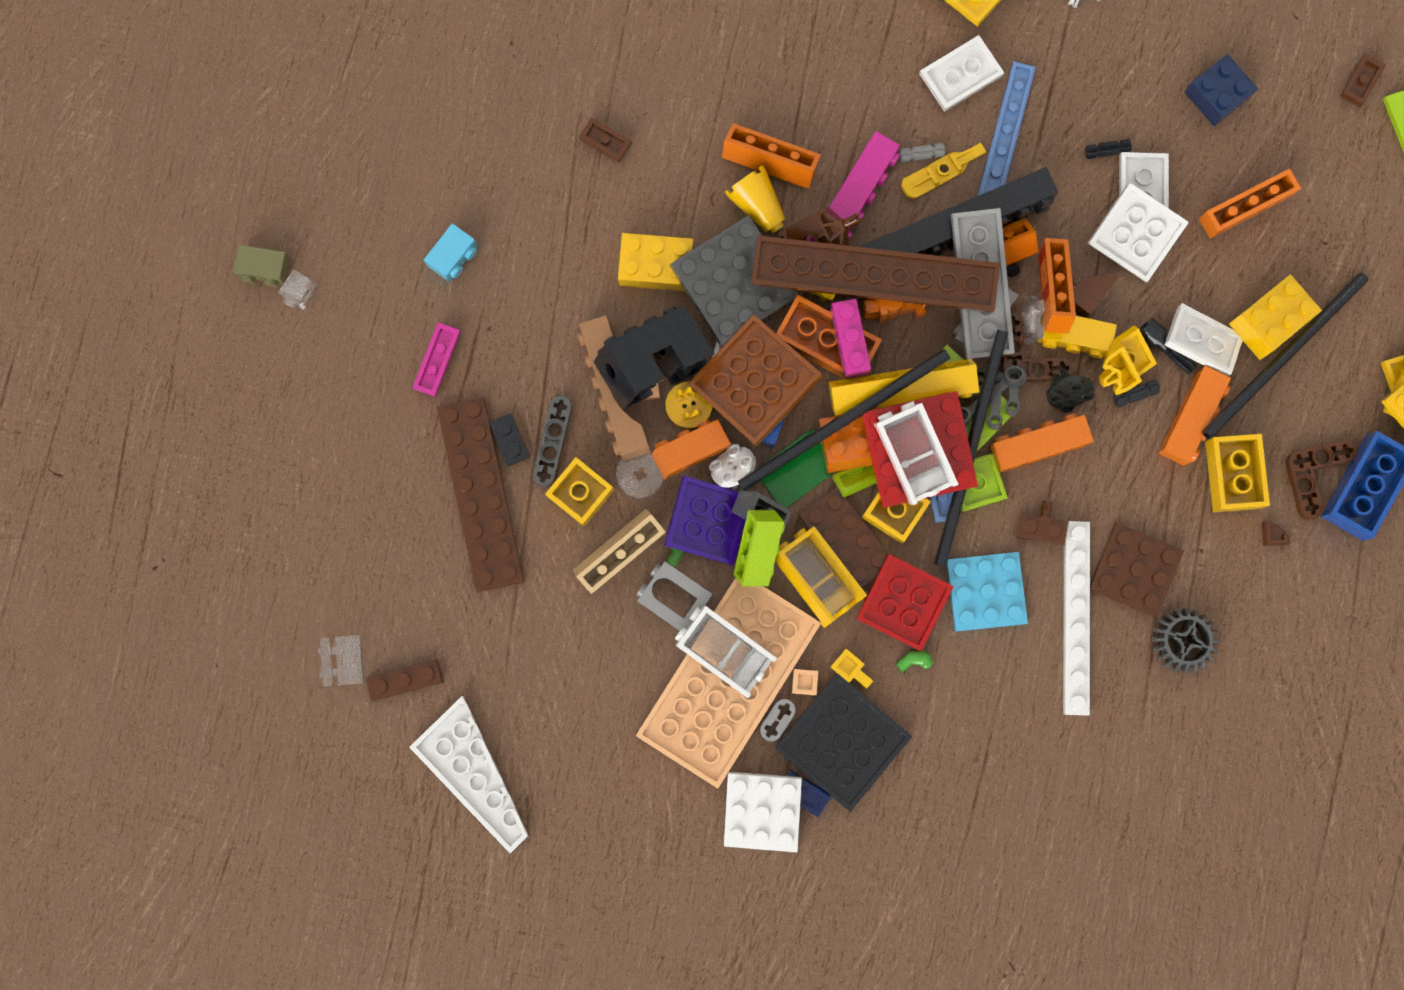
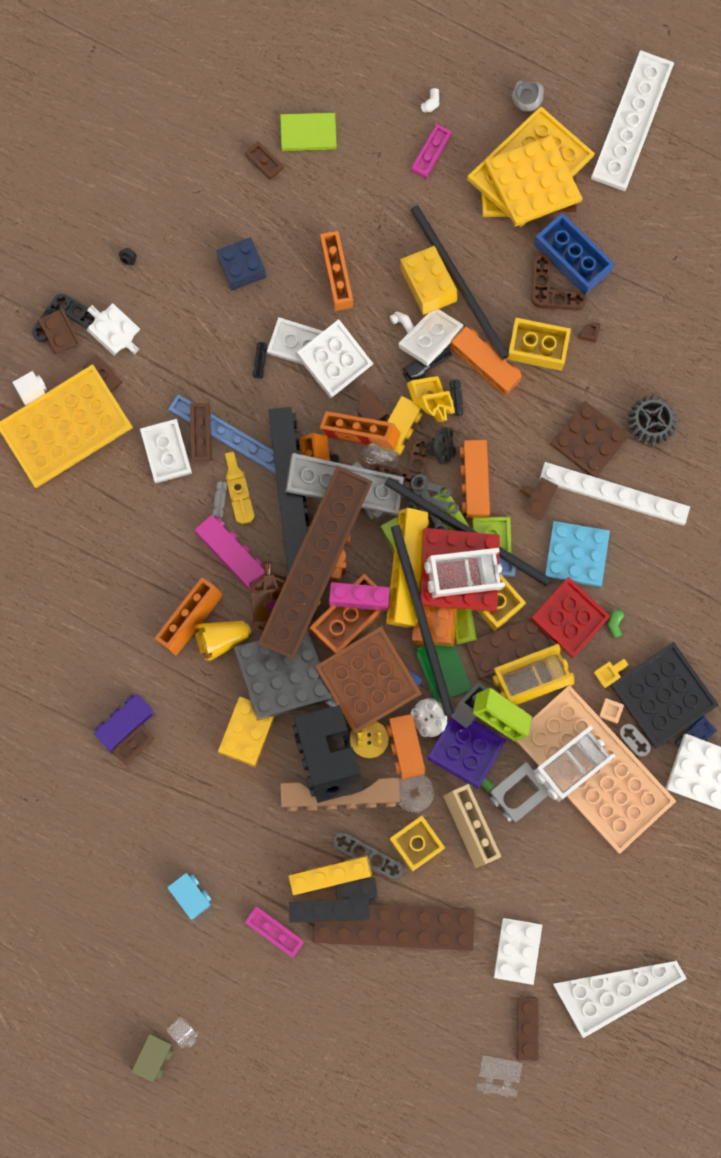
camera: 85 degrees left, 5 degrees down
(475, 412) = (329, 910): none -> black plate
(490, 645) = (517, 951): none -> white plate
(516, 402) = (330, 875): none -> yellow brick
(628, 121) = (123, 722): none -> dark purple brick
(997, 104) = (200, 431): none -> reddish brown plate
(1215, 303) = (403, 319): none -> white arm

